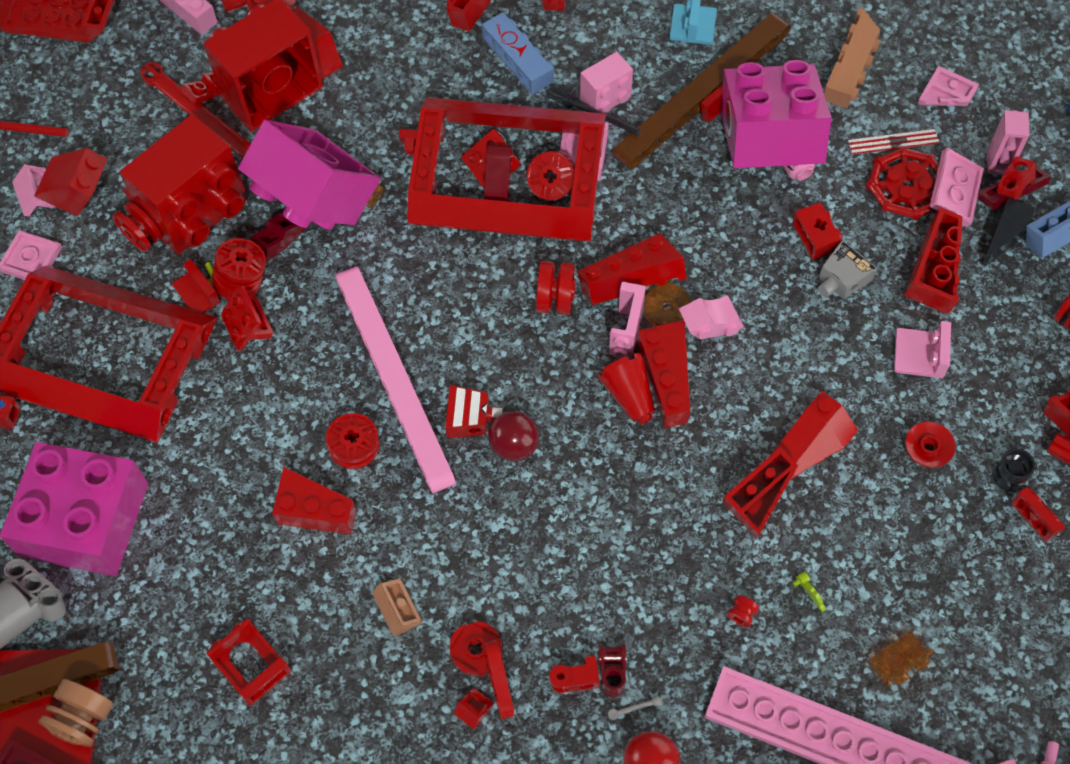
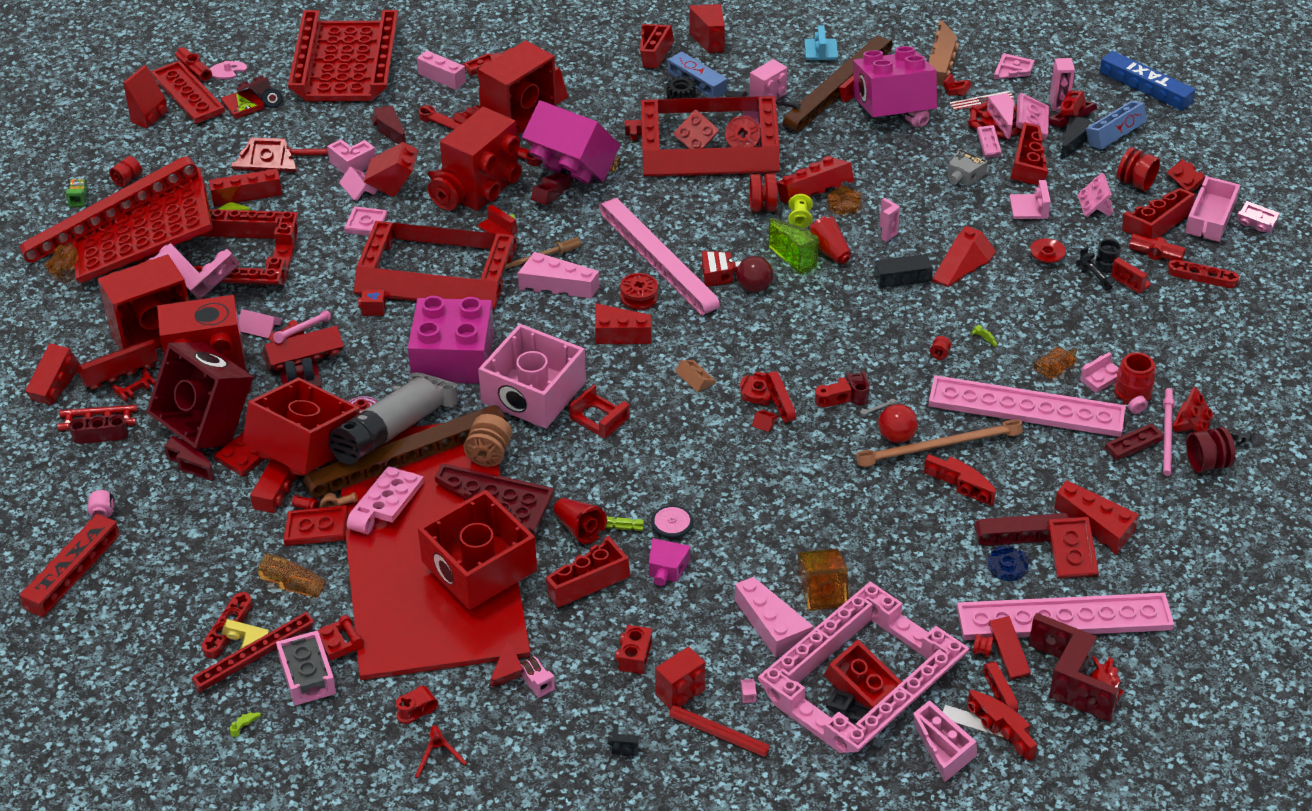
camera: 10 degrees left, 20 degrees down
(37, 146) = (344, 156): none -> bright pink panel
(97, 87) = (388, 124): none -> dark red slope
(161, 602) = (532, 375): none -> bright pink brick
(237, 264) = (530, 205): red wheel -> none
(243, 396) = (558, 276): none -> bright pink wedge
(245, 319) = (539, 233): red bracket -> none
(269, 342) = (560, 247): none -> medium nougat piece
(487, 65) = (680, 88): none -> black tyre
(498, 173) = (704, 131): dark red beam -> none
(579, 392) = (793, 245): none -> clear neon green slope
(600, 330) = (800, 215): none -> neon yellow hose
(632, 304) = (819, 198): bright pink panel -> none
(667, 370) = (855, 230): red wedge -> none
(711, 318) = (872, 197): bright pink brick -> none
(719, 362) = (889, 219): none -> bright pink panel
(720, 455) = (903, 270): none -> black brick
(760, 491) = (936, 282): red wedge -> none
(817, 230) = (939, 148): red brick -> none
(862, 117) = (956, 88): none -> red bracket
(887, 225) = (989, 141): none -> bright pink plate
(915, 176) = (1001, 110): none -> bright pink slope
(962, 695) = (1099, 373): none -> bright pink bracket
(982, 476) = (1085, 261): none -> black bar
(1017, 353) = (1096, 196): none -> bright pink bracket
(1020, 721) = (1135, 377): none -> red piece

